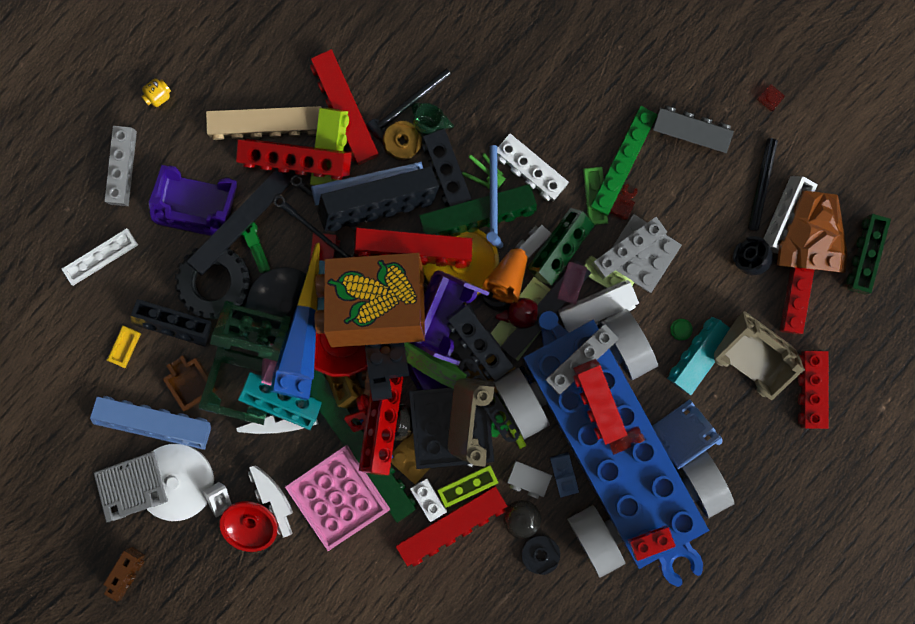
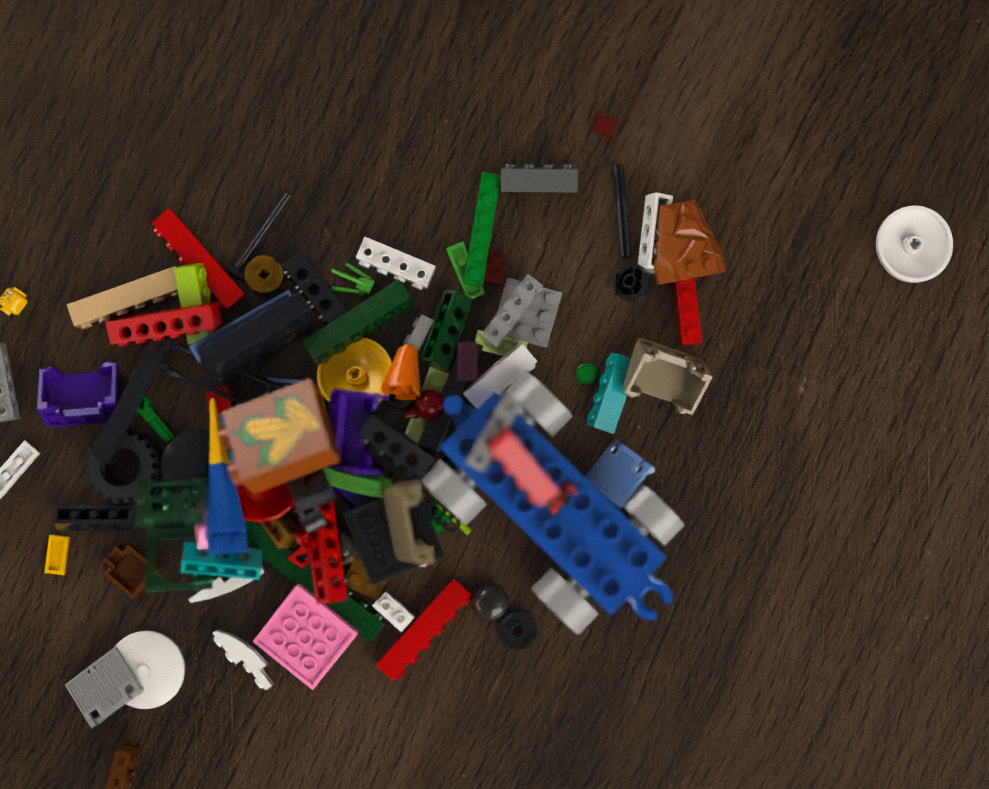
camera: 20 degrees left, 0 degrees up
(150, 422) = (105, 619): medium blue brick -> none
(217, 498) = (192, 673): white slope -> none
(246, 533) = (229, 697): red dish -> none
(429, 118) = (283, 245): clear green piece -> none
(432, 248) = (321, 370): red brick -> none
(467, 486) = (427, 586): lime brick -> none
(493, 236) = (377, 340): medium blue bar -> none
(529, 479) = (484, 561): light grey brick -> none
(564, 474) = (516, 547): medium blue slope -> none
(651, 543) = (613, 586): red brick -> none
(814, 390) = (730, 392): red brick -> none
(868, 255) = (741, 247): dark green brick -> none

